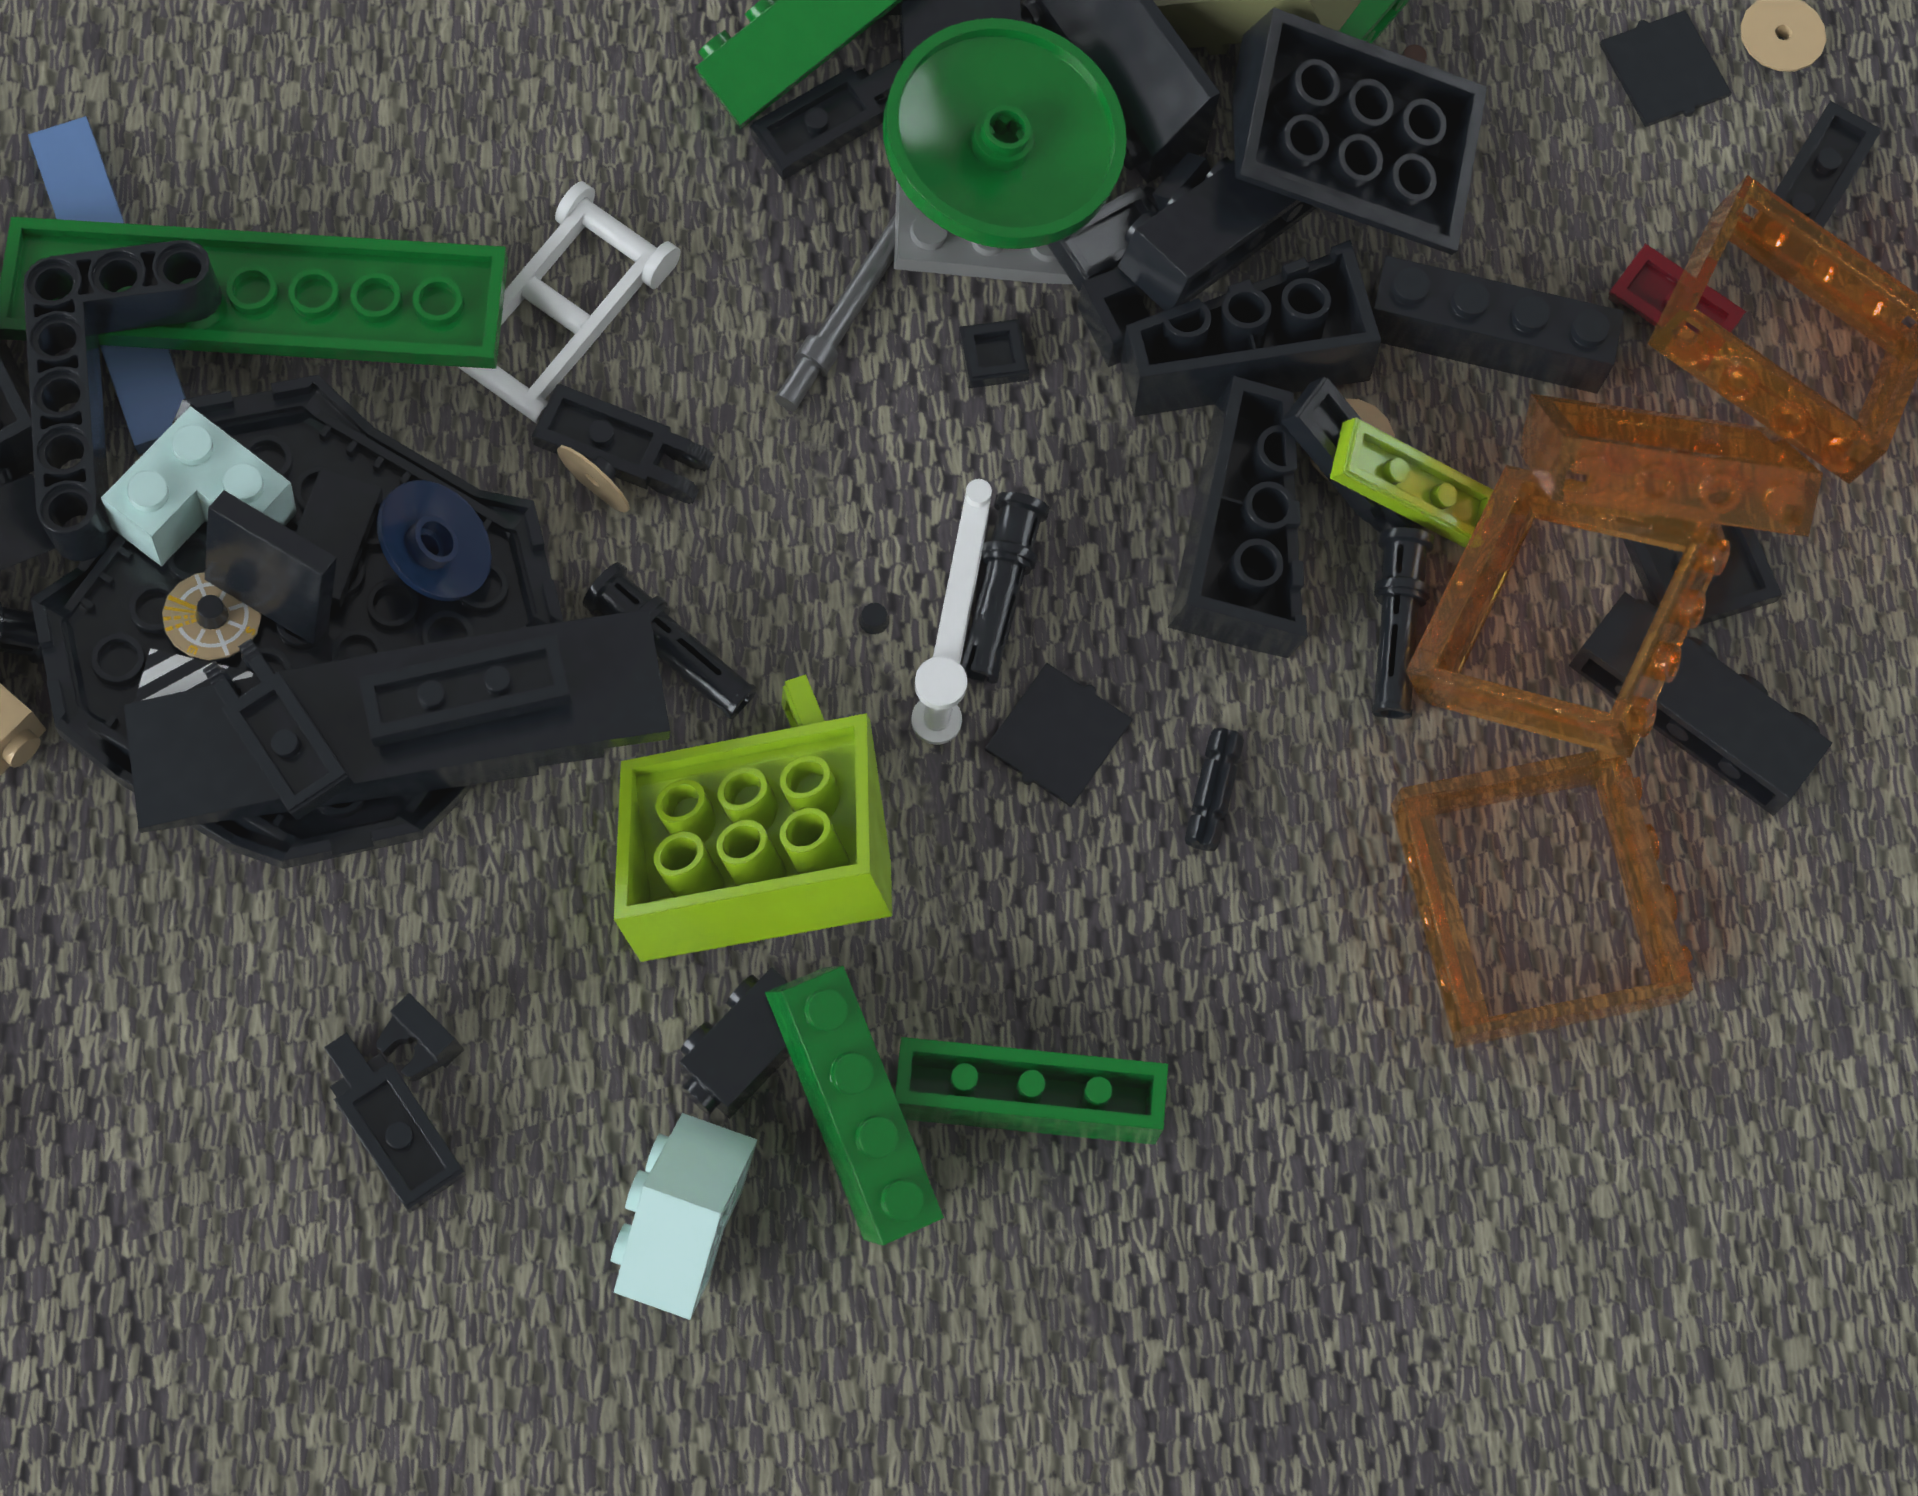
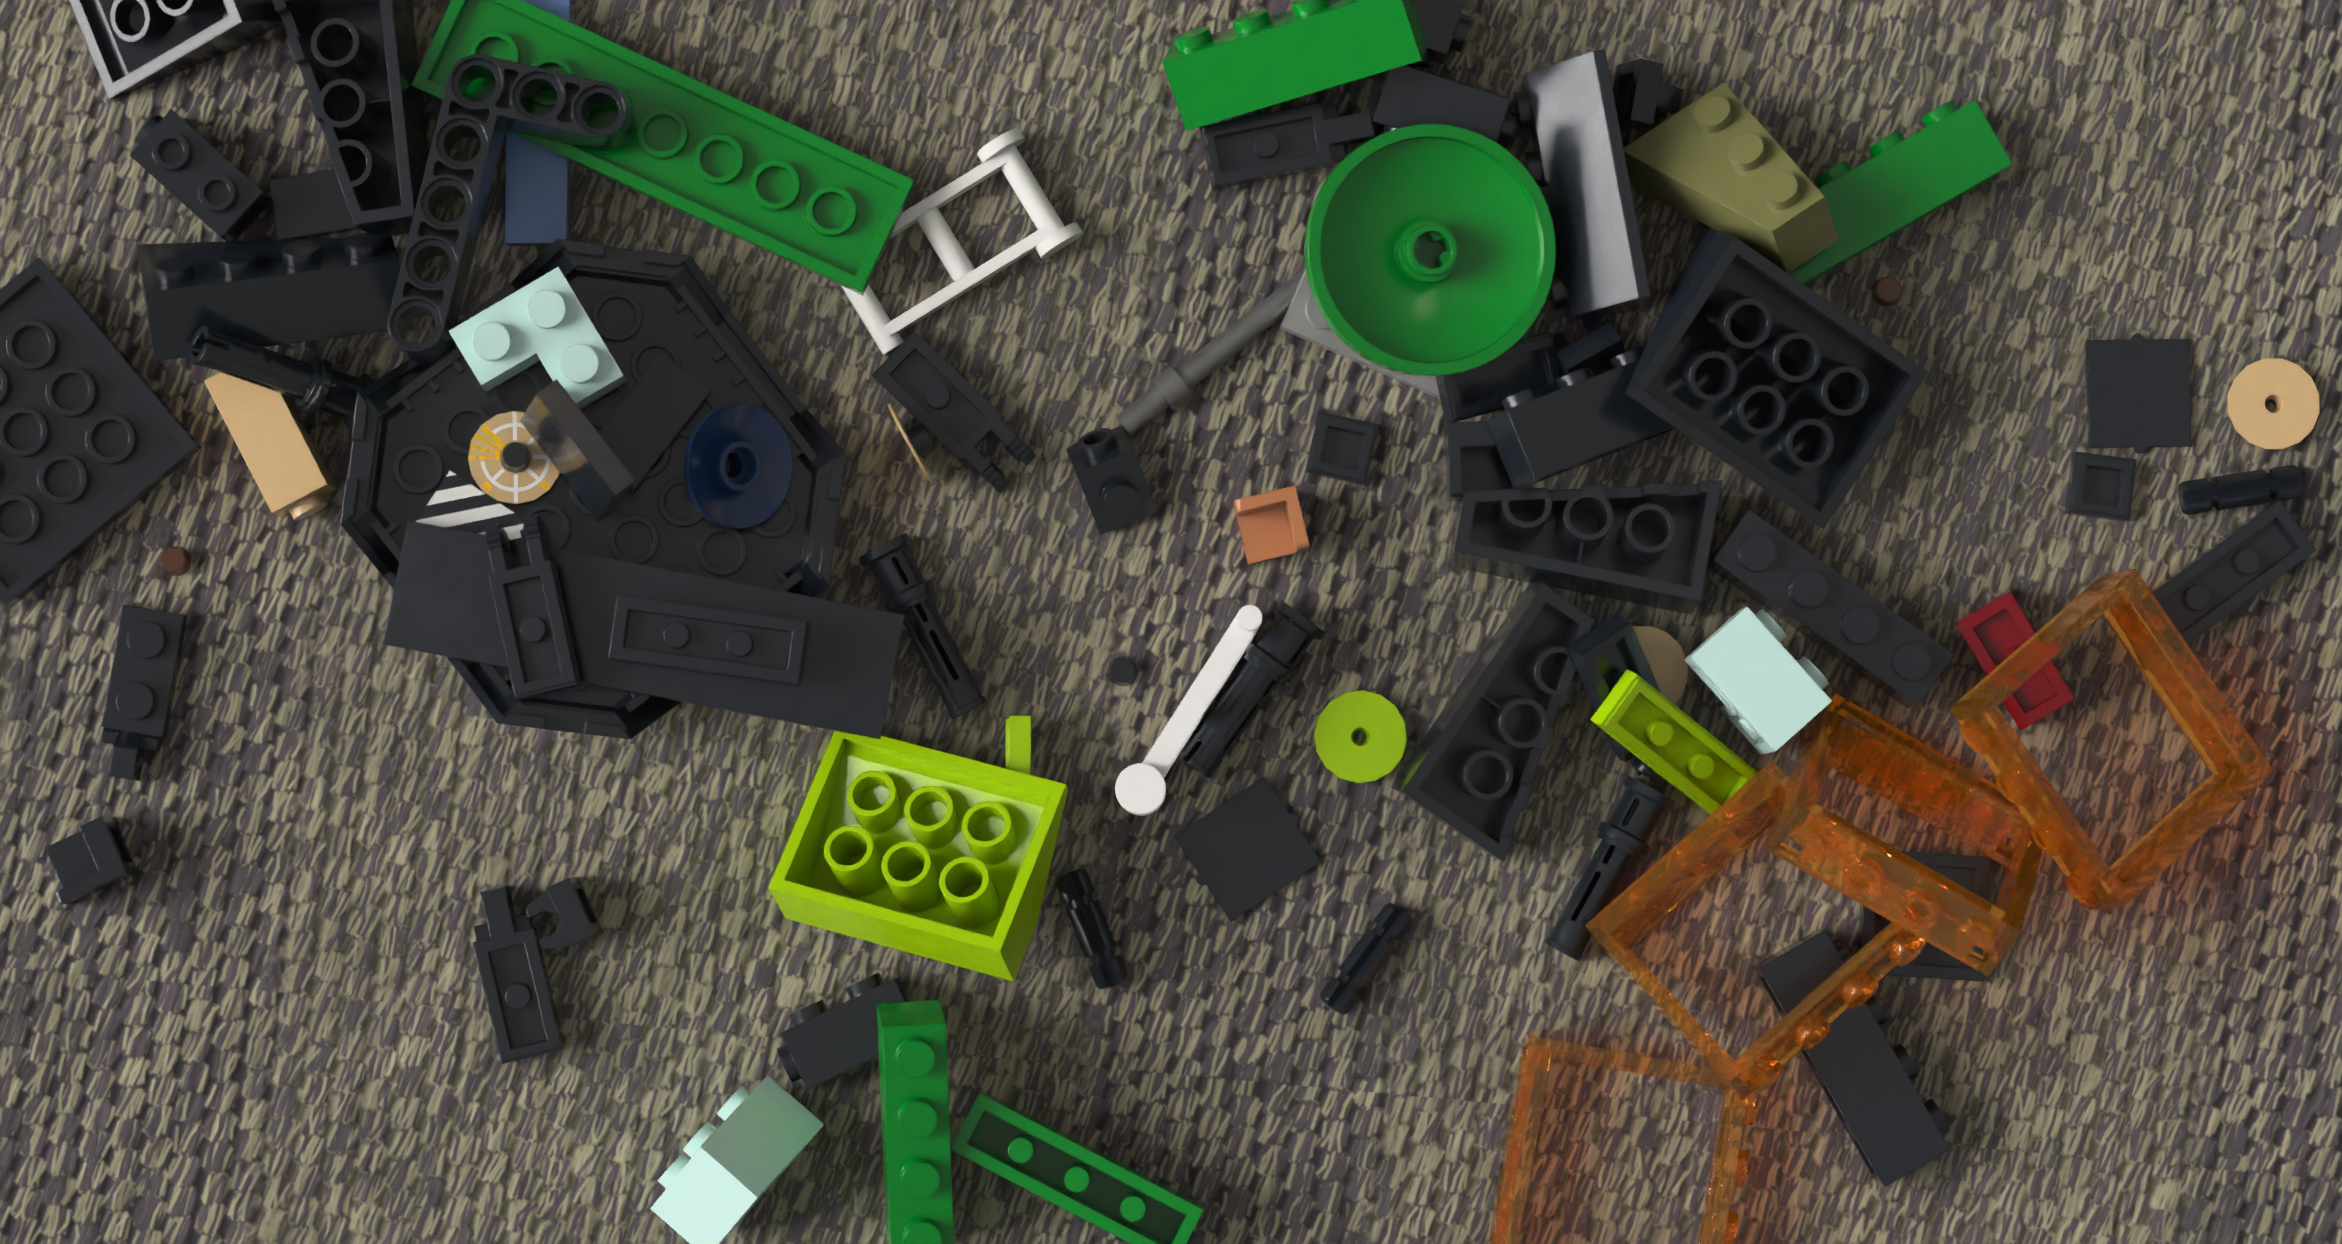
camera: 30 degrees right, 15 degrees up
(794, 449) = (1111, 478): none -> black bracket
(943, 860) = (1091, 929): none -> black axle
(959, 432) = (1271, 525): none -> nougat panel
(1126, 573) = (1383, 731): none -> lime piece
(1465, 393) = (1758, 680): none -> light aqua brick
(1672, 151) = (2100, 486): none -> black tile
(1789, 111) = (2240, 489): none -> black axle

